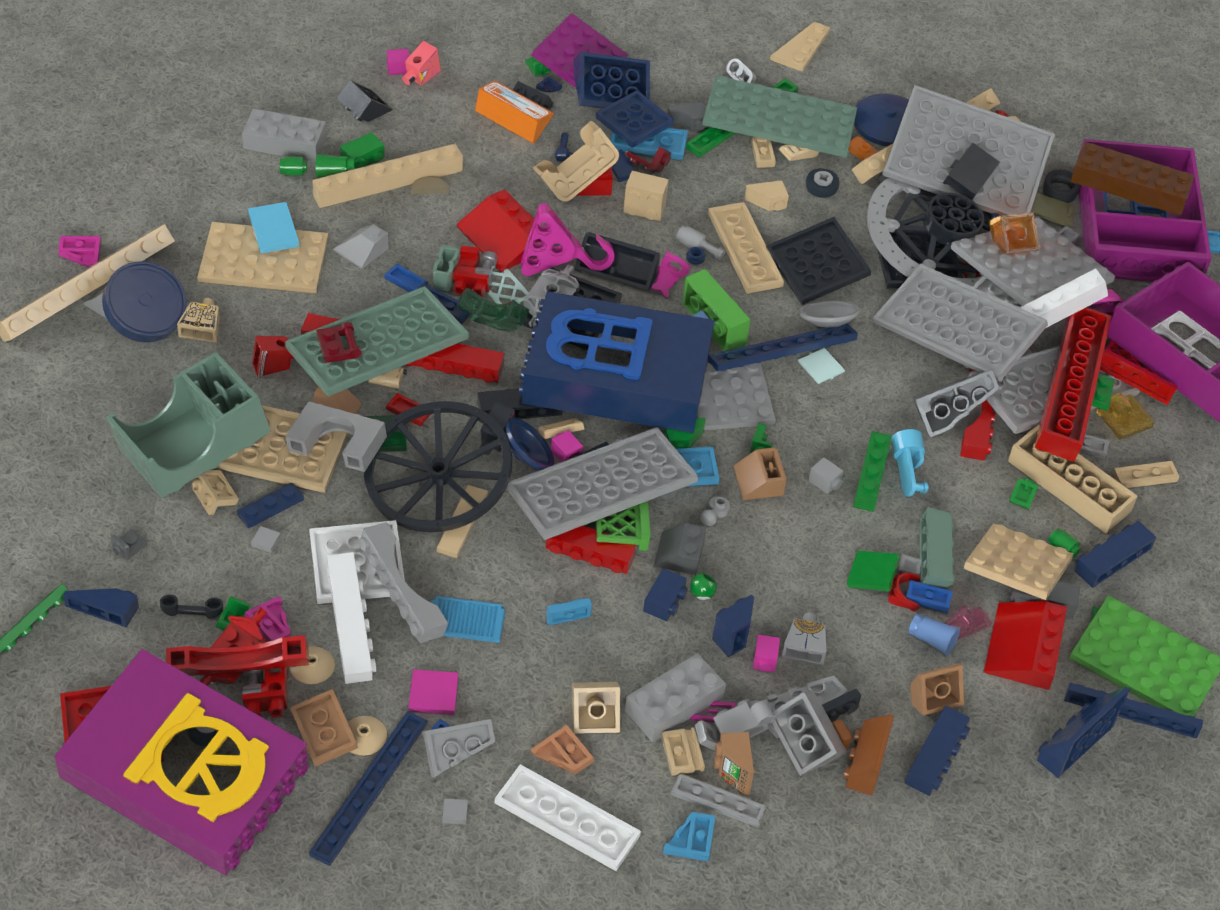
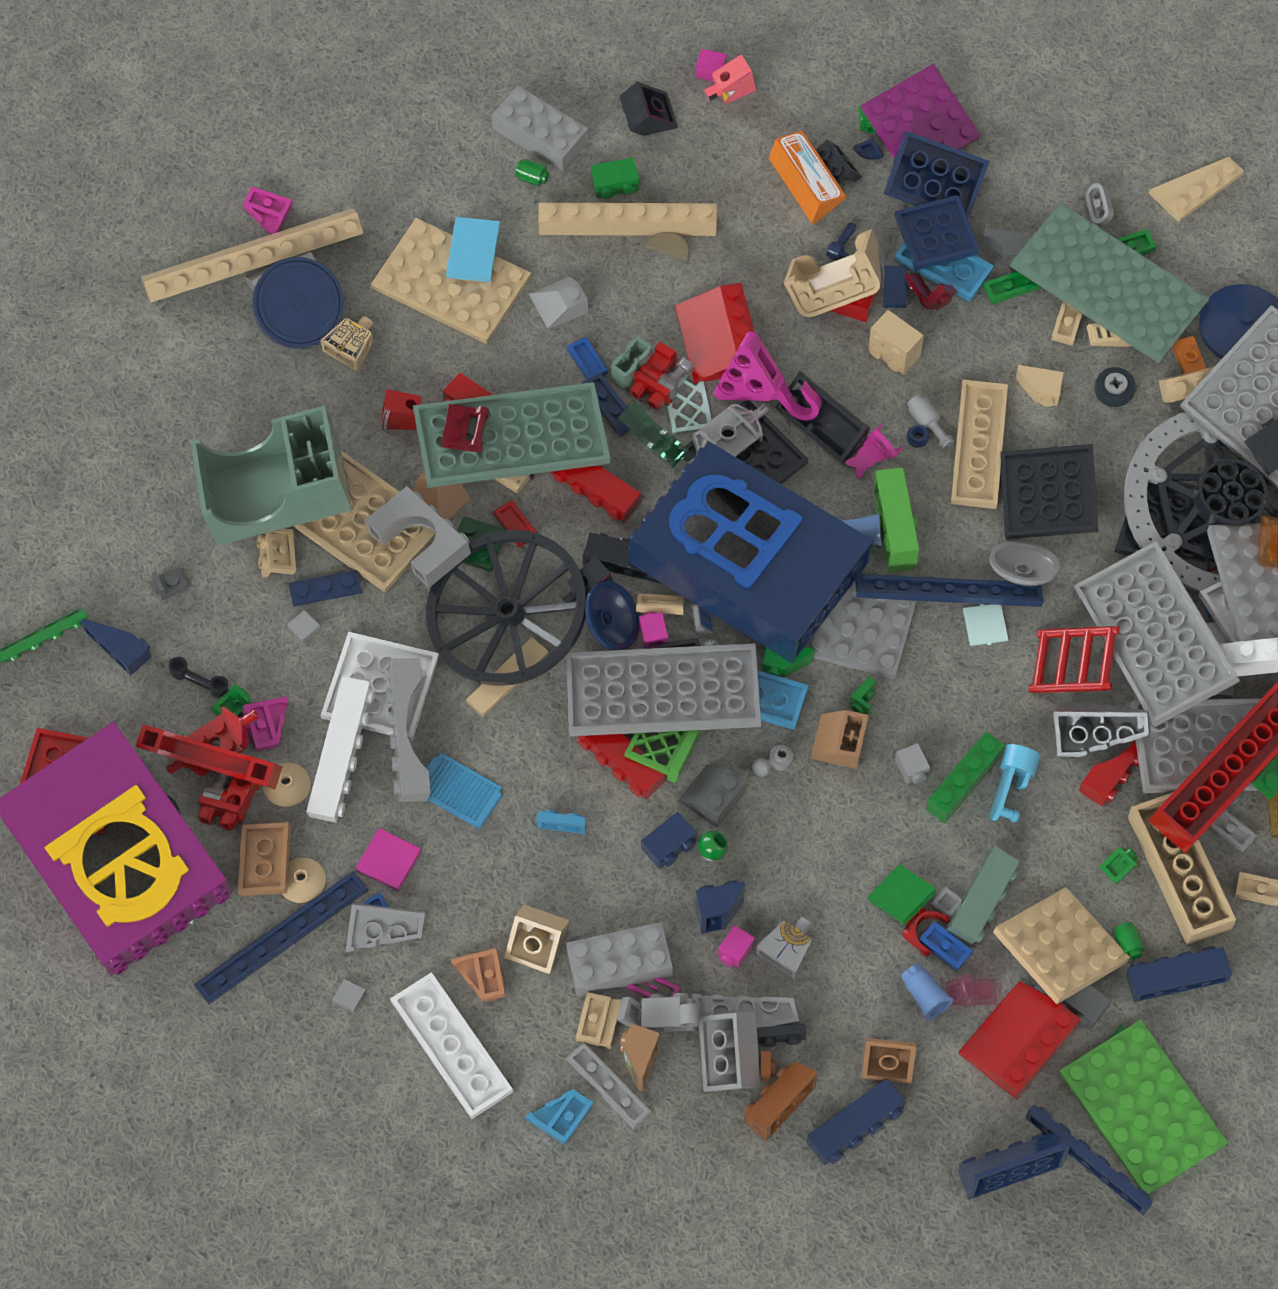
camera: 30 degrees right, 15 degrees up
(330, 165) = (573, 189): green plant -> none
(599, 431) = (702, 621): none -> light grey slope
(922, 375) = (1081, 684): none -> red bar

